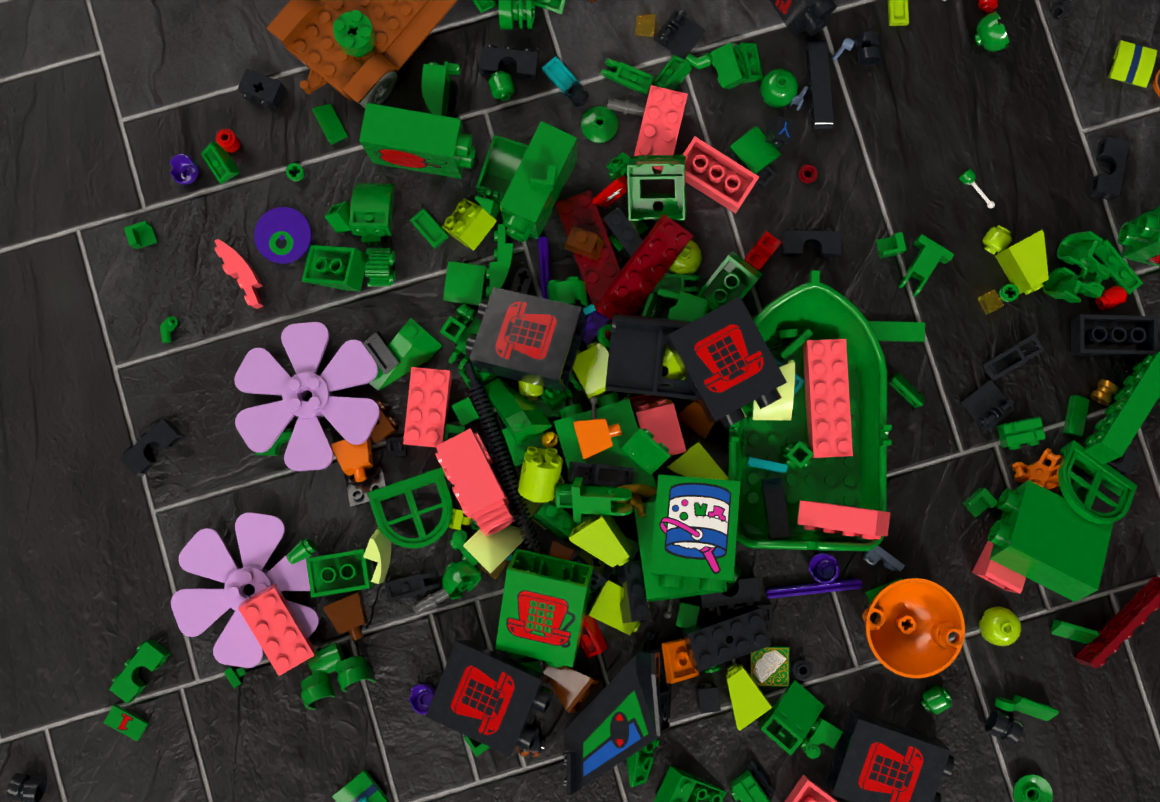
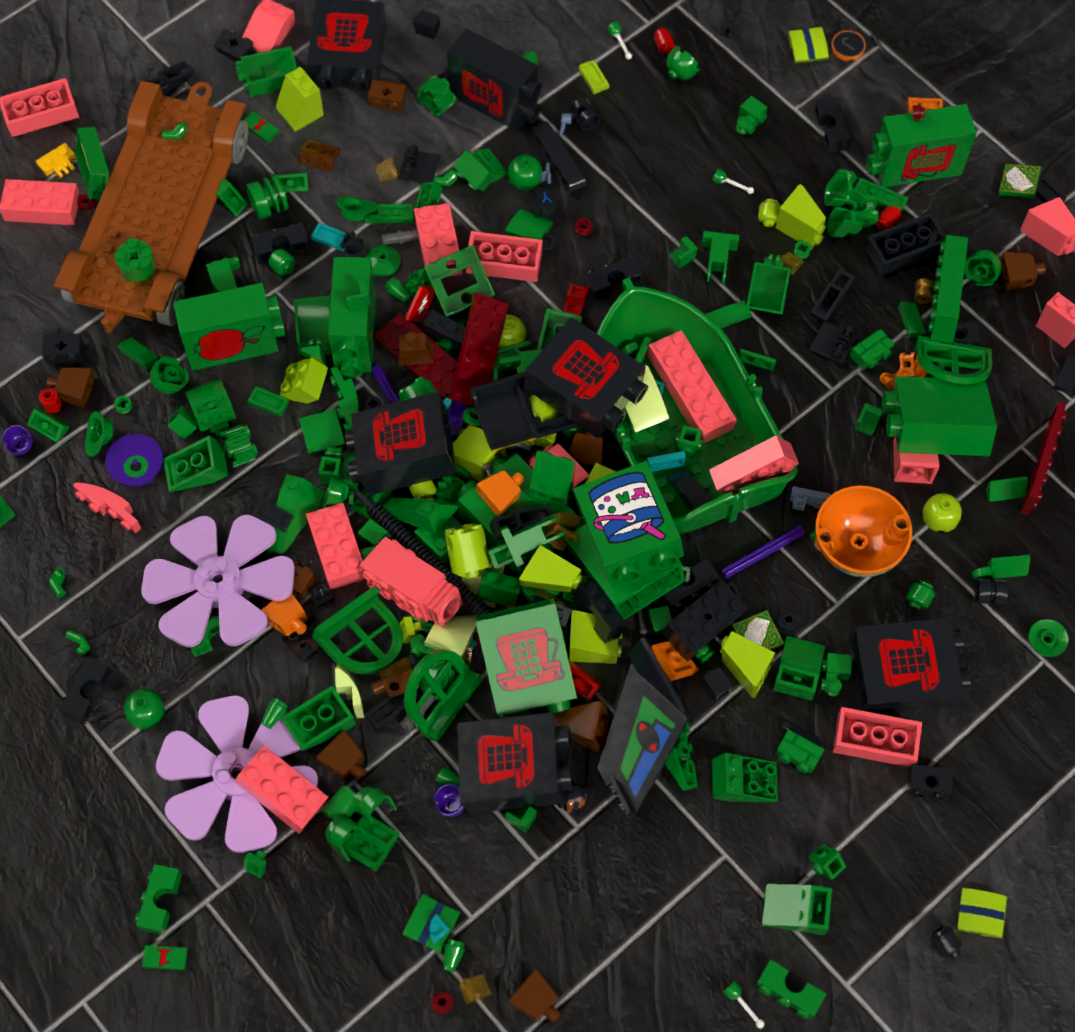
camera: 25 degrees left, 20 degrees down
(165, 395) = (80, 640): none -> green arm
(196, 487) = (144, 709): none -> green cylinder
(256, 132) = (73, 385): none -> reddish brown torso
(260, 194) = (98, 433): none -> green piece
(343, 705) = (373, 845): none -> green slope
(345, 164) = (168, 375): none -> green cylinder
(426, 565) = (394, 678): none -> reddish brown torso
(431, 675) = (447, 776): none -> green cone
(446, 357) = (335, 493): none -> green piece
(462, 607) = (450, 702): none -> green window
(548, 437) = (462, 519): yellow hinge -> none
(597, 57) = (355, 209): none -> green piece
(598, 164) = (398, 290): none -> green cone
(824, 568) = (761, 527): dark purple hair -> none
(954, 323) = (768, 285): none -> green piece
(1034, 120) = (750, 115): none -> green brick

